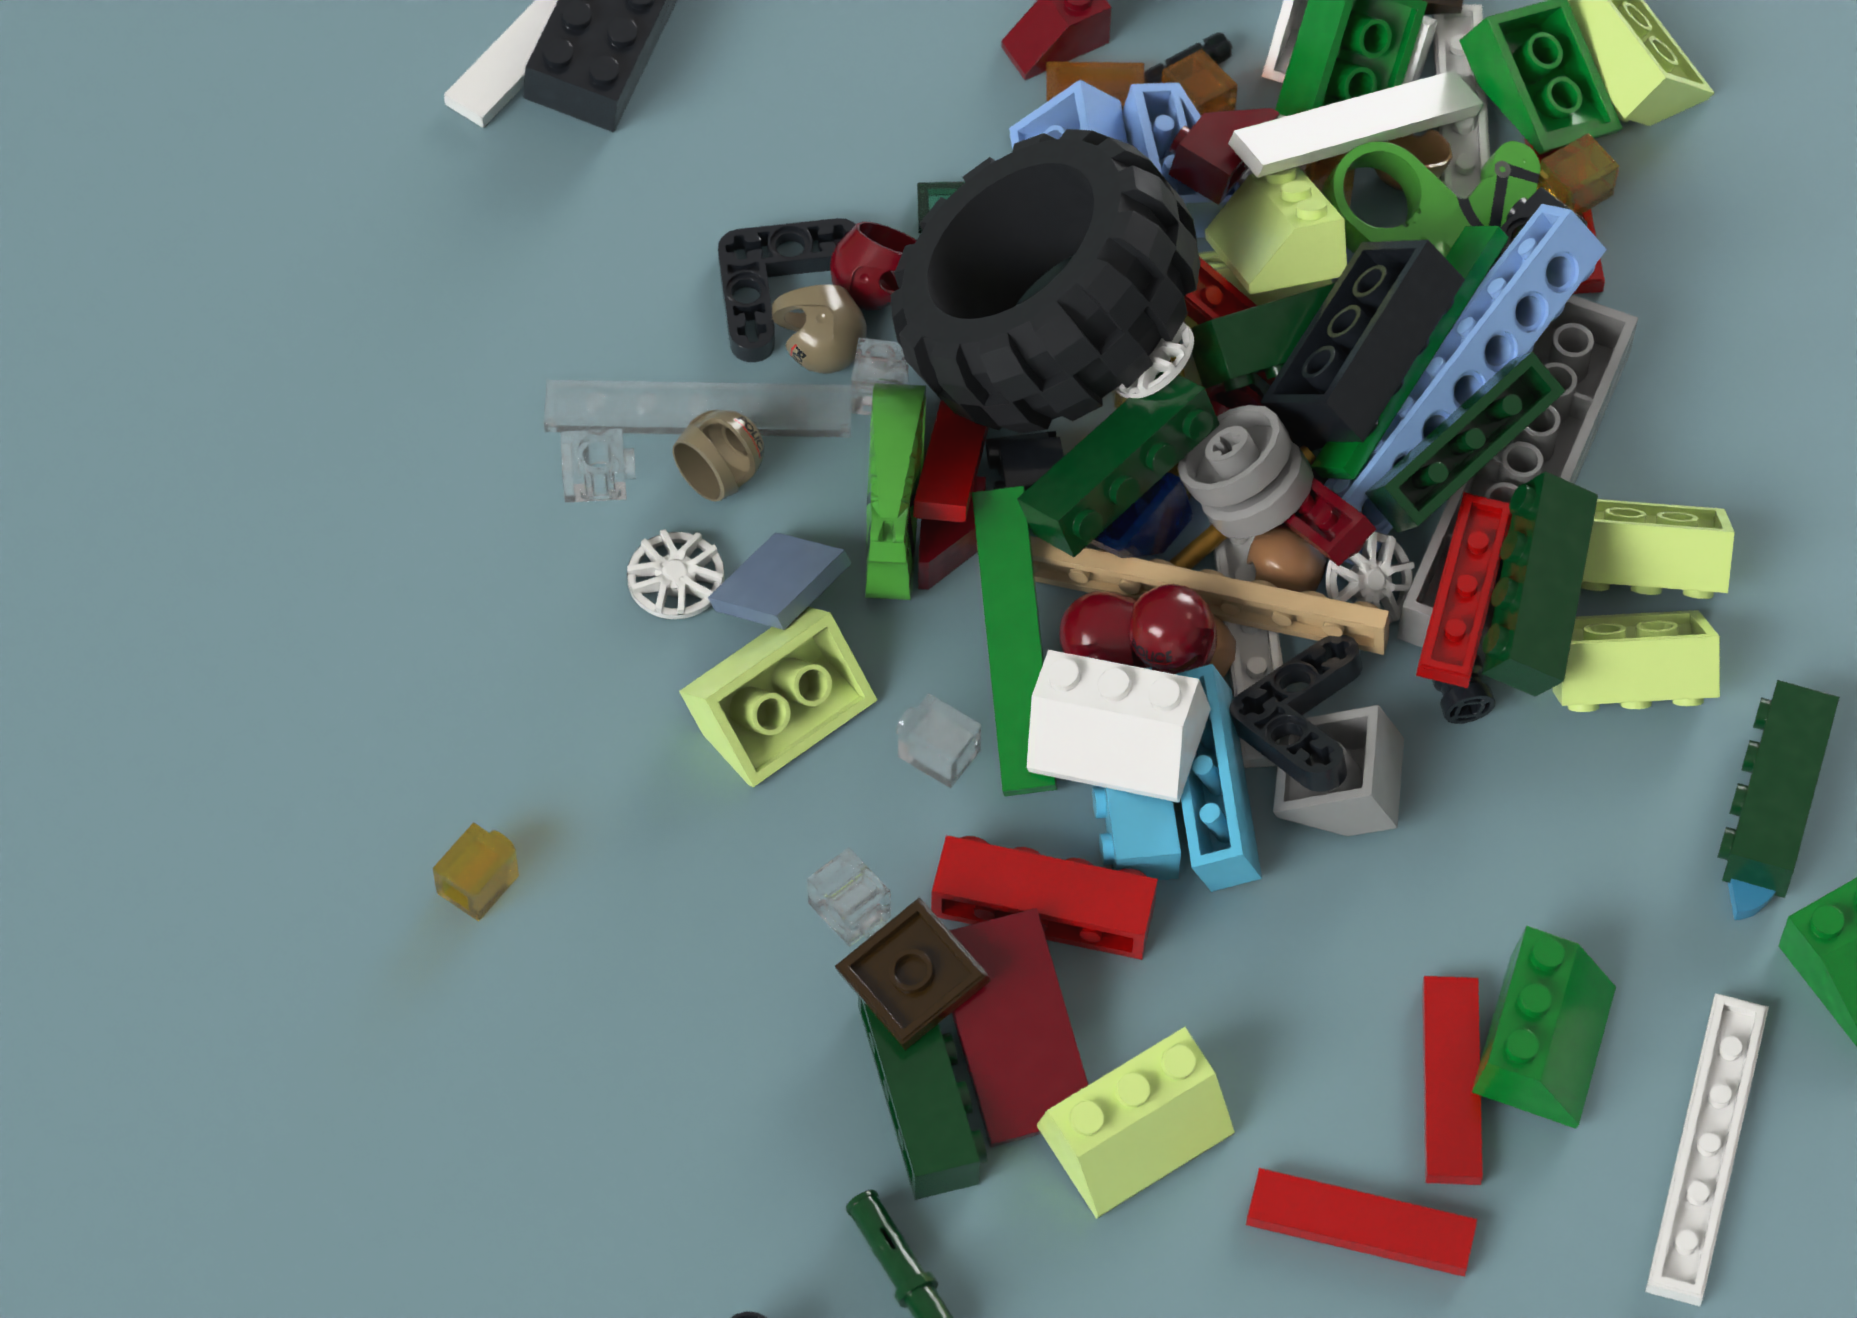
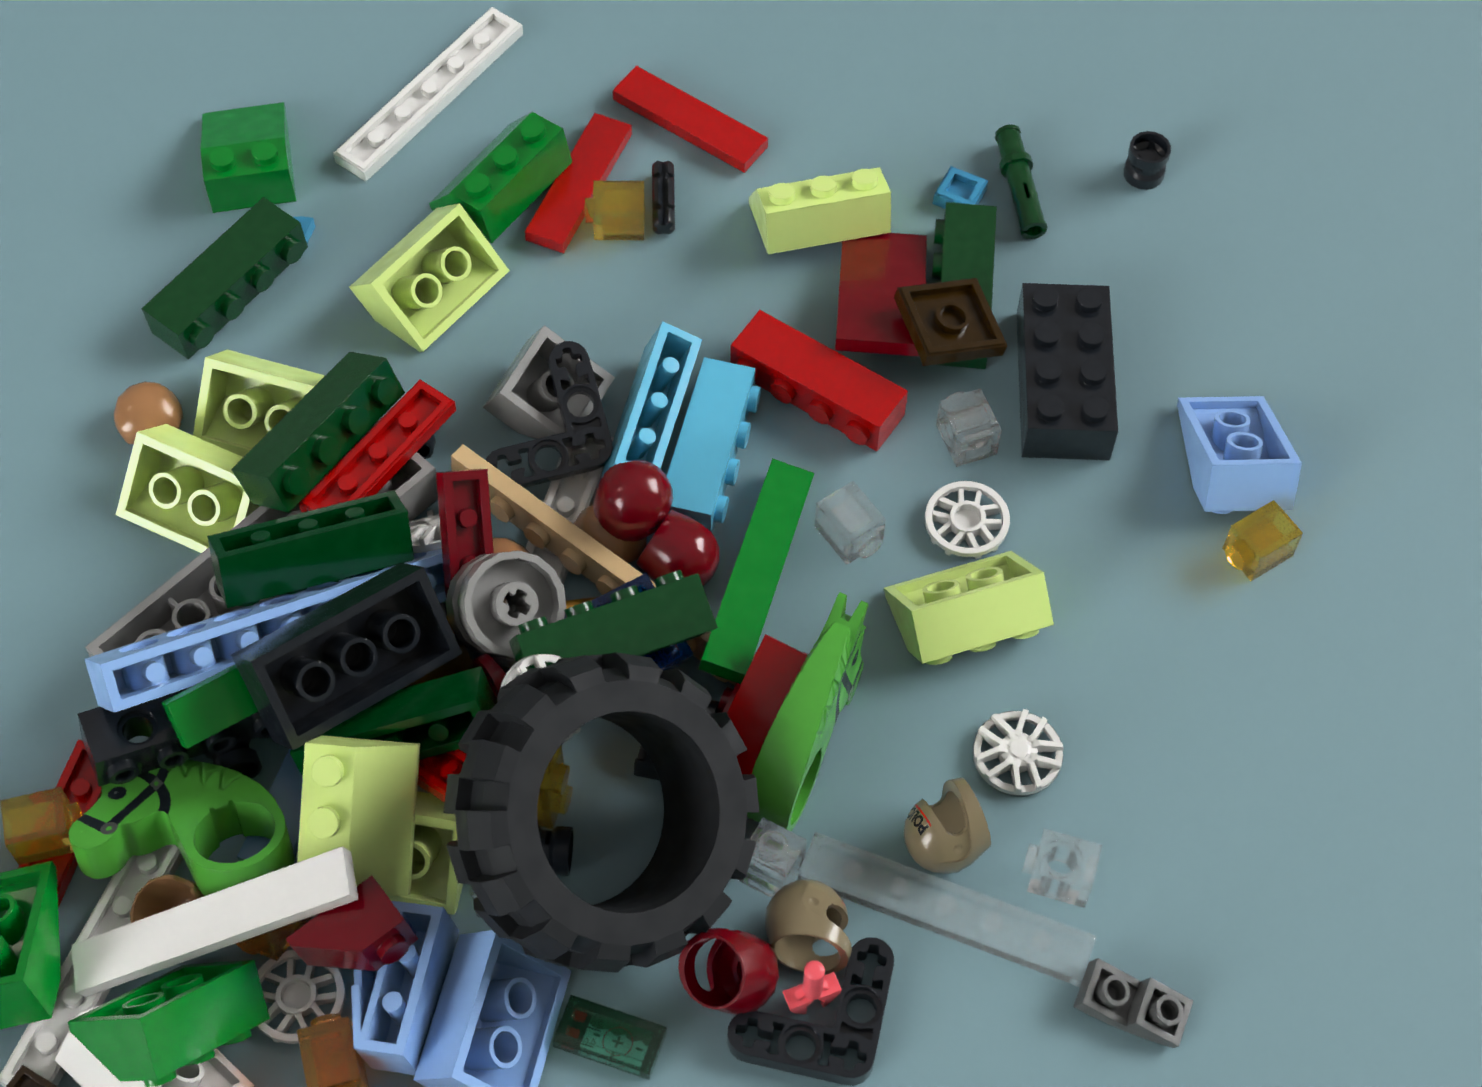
camera: 160 degrees left, 0 degrees up
(481, 381) = (1133, 1005): none -> dark grey slope
(533, 976) = (1237, 454): none -> light blue slope
(760, 1002) = (1066, 372): none -> black brick
(779, 580) = (935, 691): sand blue tile -> none
(798, 270) = (814, 986): none -> coral bar
(814, 804) = (967, 519): none -> white wheel
(974, 1235) = (960, 188): none -> dark azure tile
(1115, 725) = (710, 445): white slope -> none
(1338, 1091) = (663, 197): none -> black axle
(1380, 1038) = (617, 210): none -> clear yellow brick
(1554, 867) = (430, 277): none -> yellowish green slope
(1762, 616) = (146, 407): none -> medium nougat hair

